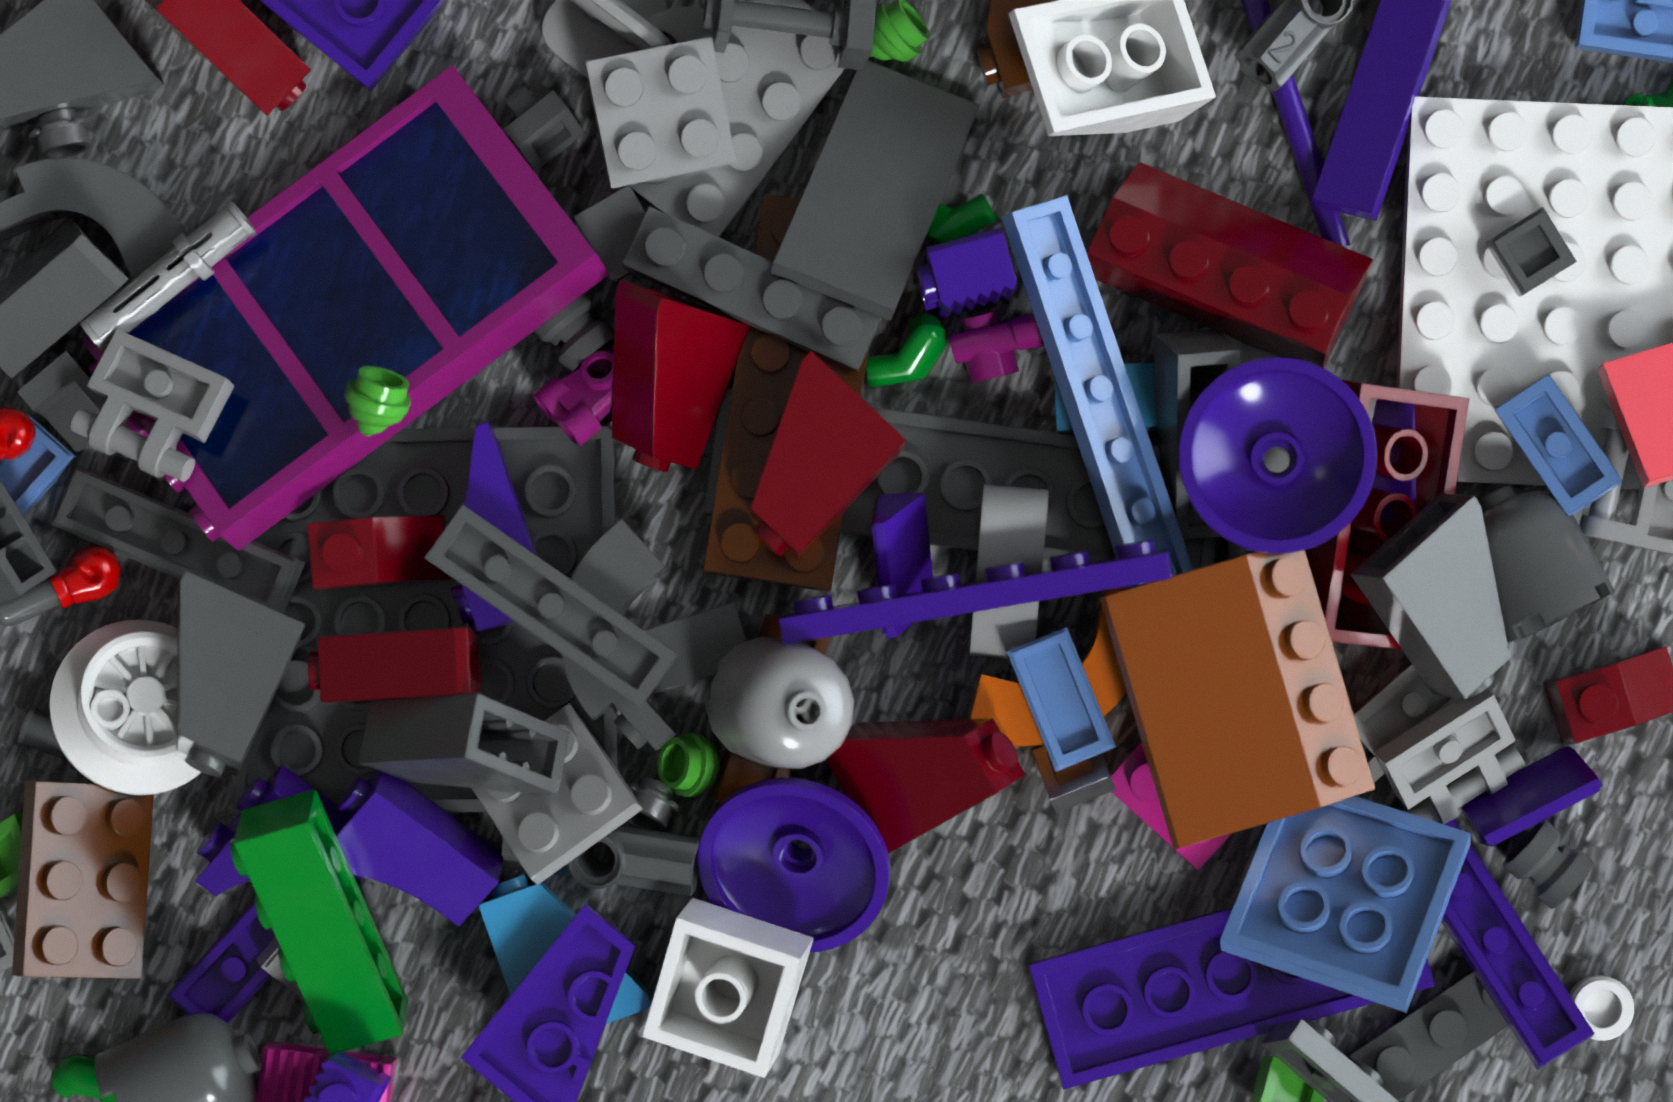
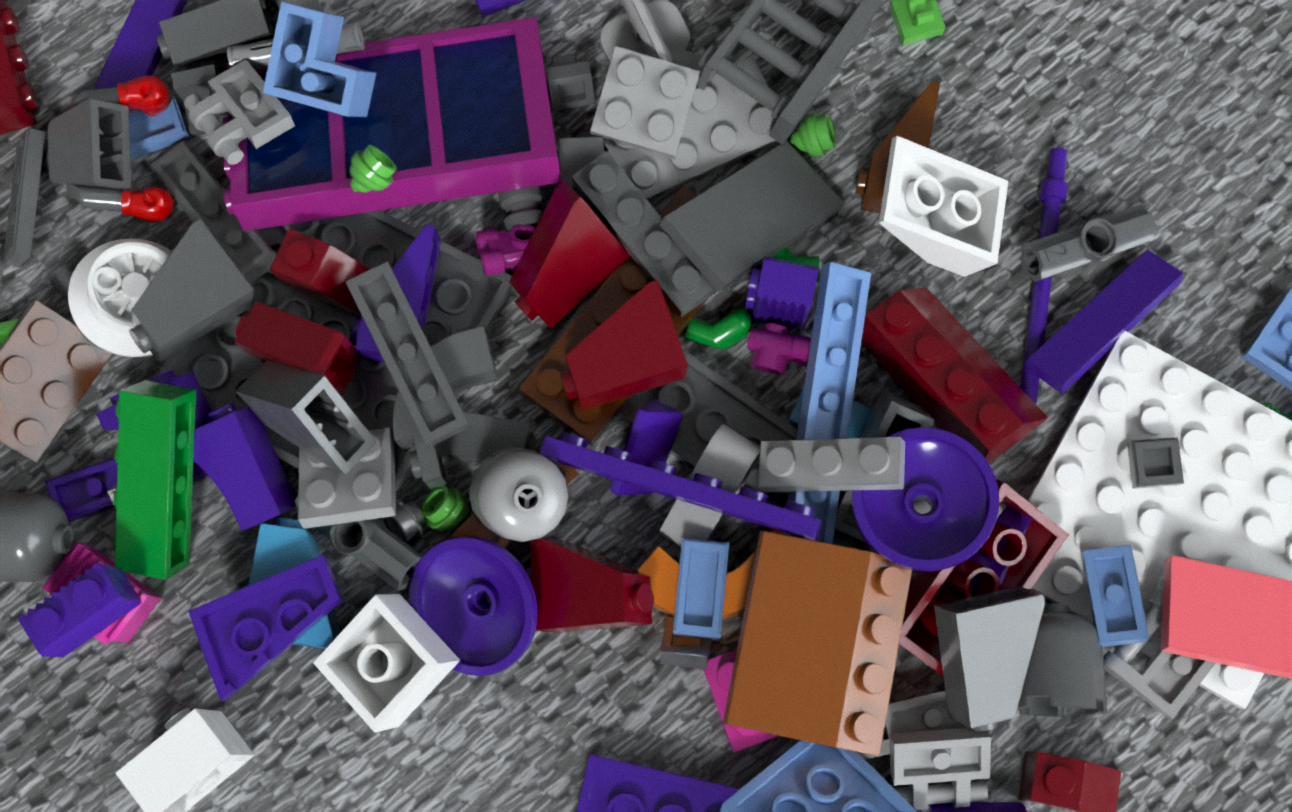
camera: 30 degrees right, 10 degrees down
(221, 313) = (305, 66): none -> medium blue brick
(1145, 473) = (832, 464): none -> light grey plate

